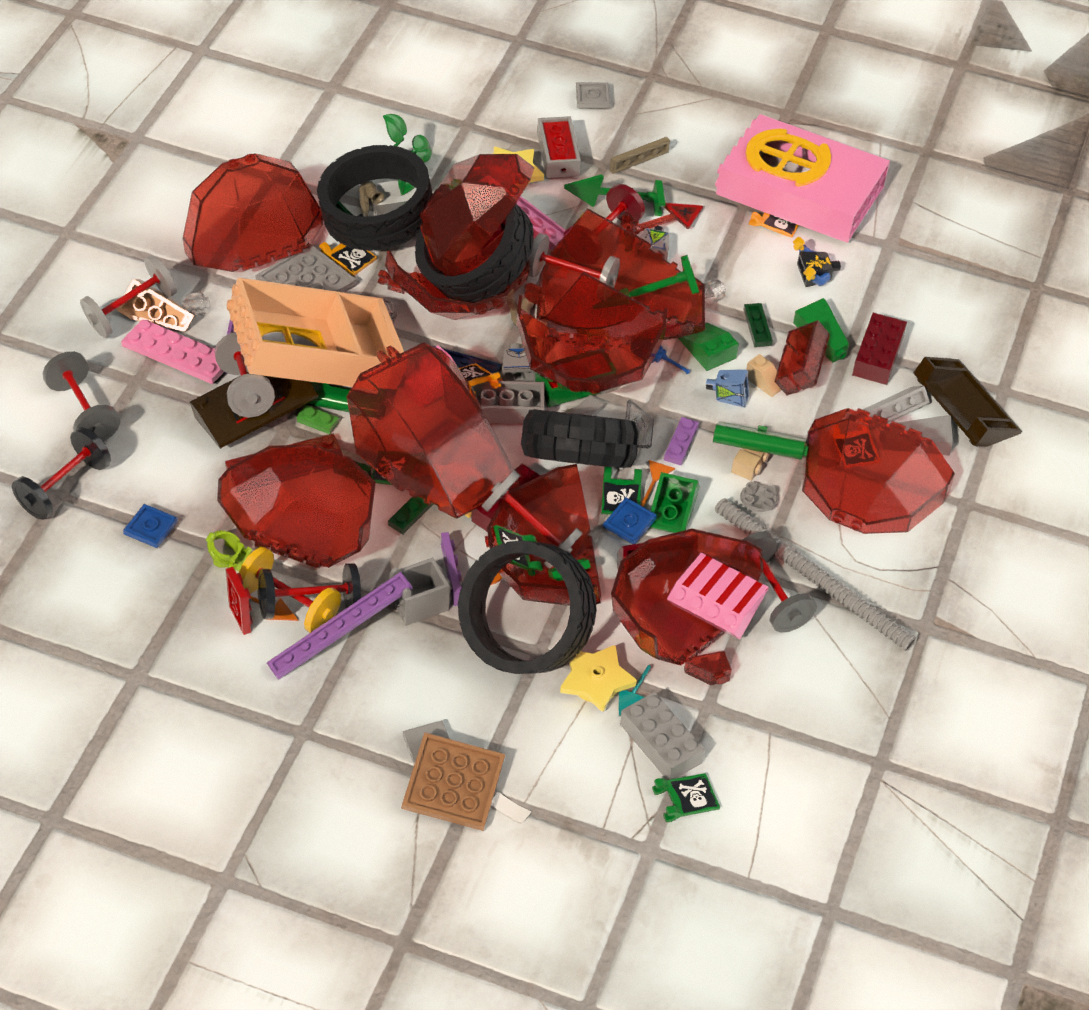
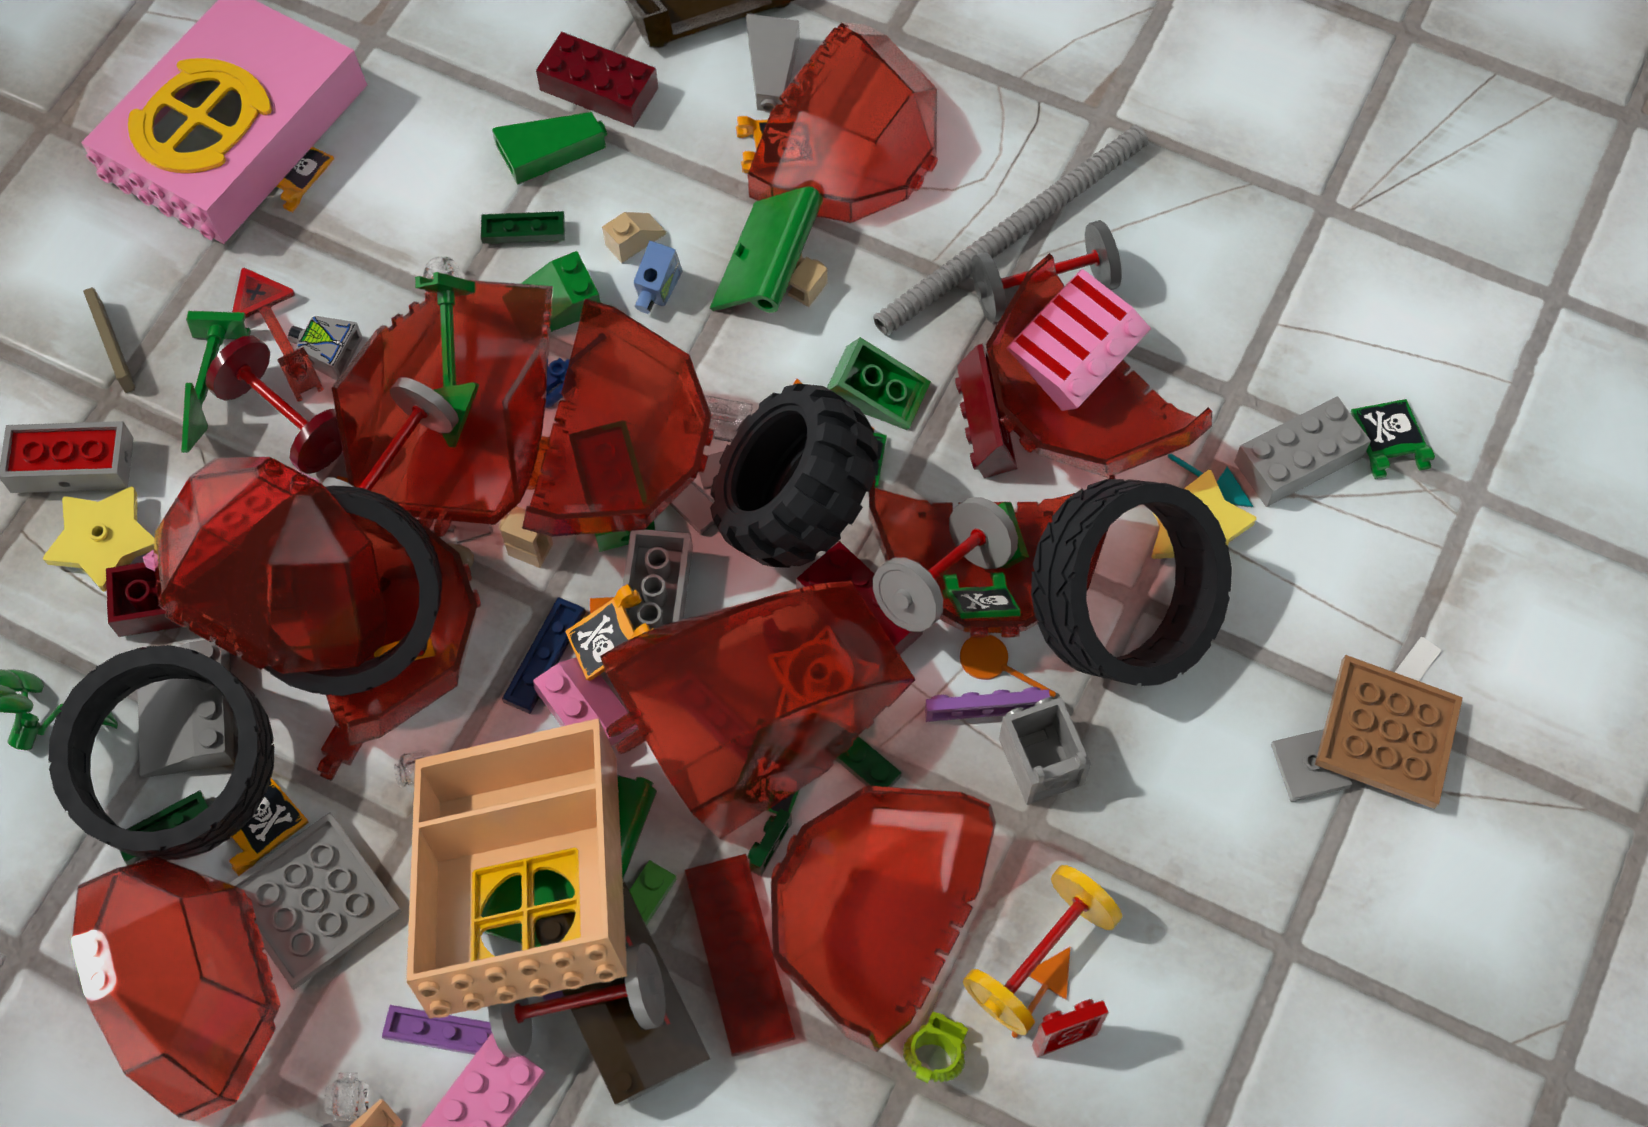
camera: 80 degrees left, 15 degrees up
(266, 591) = (1041, 852): black piece -> none
(338, 626) = (1116, 873): medium lavender tile -> none
(369, 191) = (107, 782): dark tan piece -> none
(516, 365) = (564, 570): light grey torso -> none
(629, 521) = (906, 447): blue plate -> none
(681, 441) = (745, 362): medium lavender plate -> none
(709, 668) = (1180, 374): clear red slope -> none
(758, 497) = (867, 275): light grey dish -> none
(802, 358) = (616, 173): clear red piece -> none
(813, 265) = (413, 133): torso -> none
(900, 403) = (706, 83): light grey panel -> none

